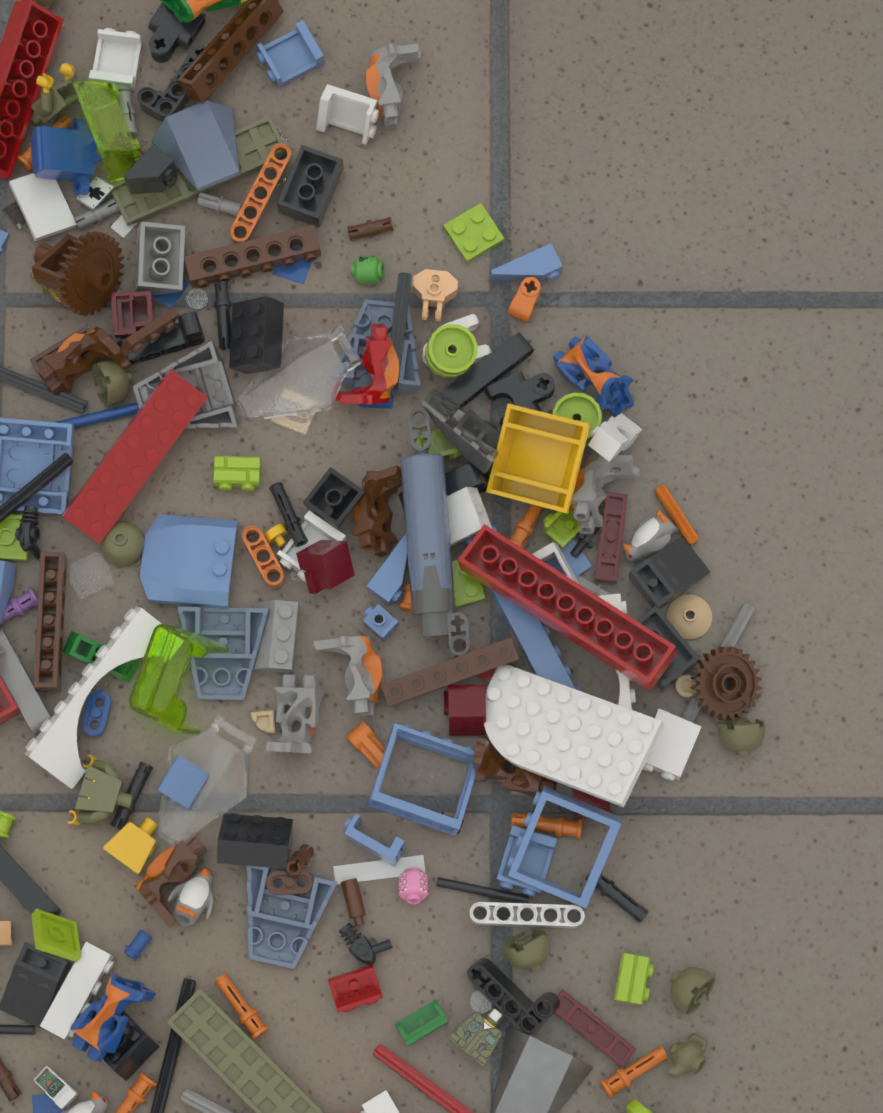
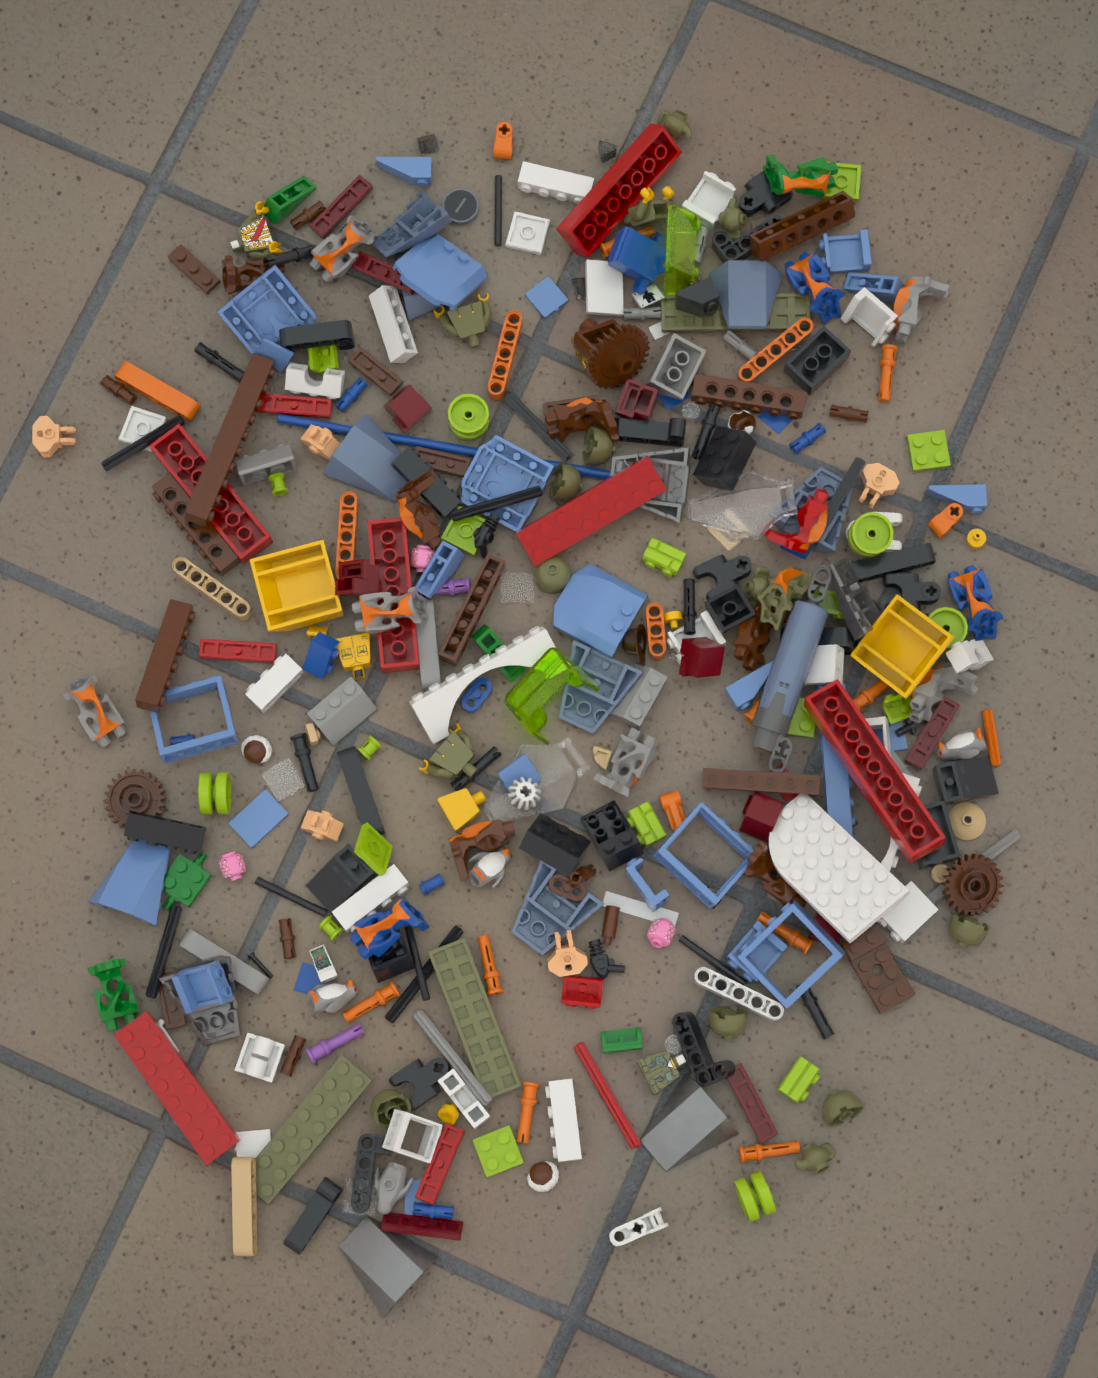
camera: 25 degrees right, 0 degrees up
(47, 1043) = (330, 928): none -> lime bush
(94, 436) = (566, 483): none -> olive cylinder
(149, 333) = (643, 421): reddish brown plate -> none
(151, 70) = (732, 219): none -> olive piece
(160, 1040) = (417, 963): none -> black bar
(195, 807) = (520, 799): none -> white gear
(247, 579) = (635, 642): none -> dark brown piece
(258, 287) = (742, 421): none -> reddish brown hair
(284, 109) = (823, 293): none -> blue hips
(310, 460) = (725, 573): none -> black piece
(313, 802) = (612, 835): none -> black slope
(320, 957) = (566, 955): none -> light nougat hinge
(337, 274) = (807, 438): none -> blue pin
(346, 75) = (881, 286): none -> medium blue slope
(346, 774) = (646, 824): none -> lime brick
(354, 459) = (757, 584): none -> olive piece
(363, 673) = (693, 753): light grey hips -> none
(368, 269) = (833, 444): bright green head -> none
(383, 629) = (721, 726): medium blue brick -> none
(385, 446) = (787, 586): none -> olive hips
(389, 157) = (888, 364): none -> orange pin
(566, 306) = (976, 538): none -> yellow tile
(682, 838) = (883, 989): none -> reddish brown piece

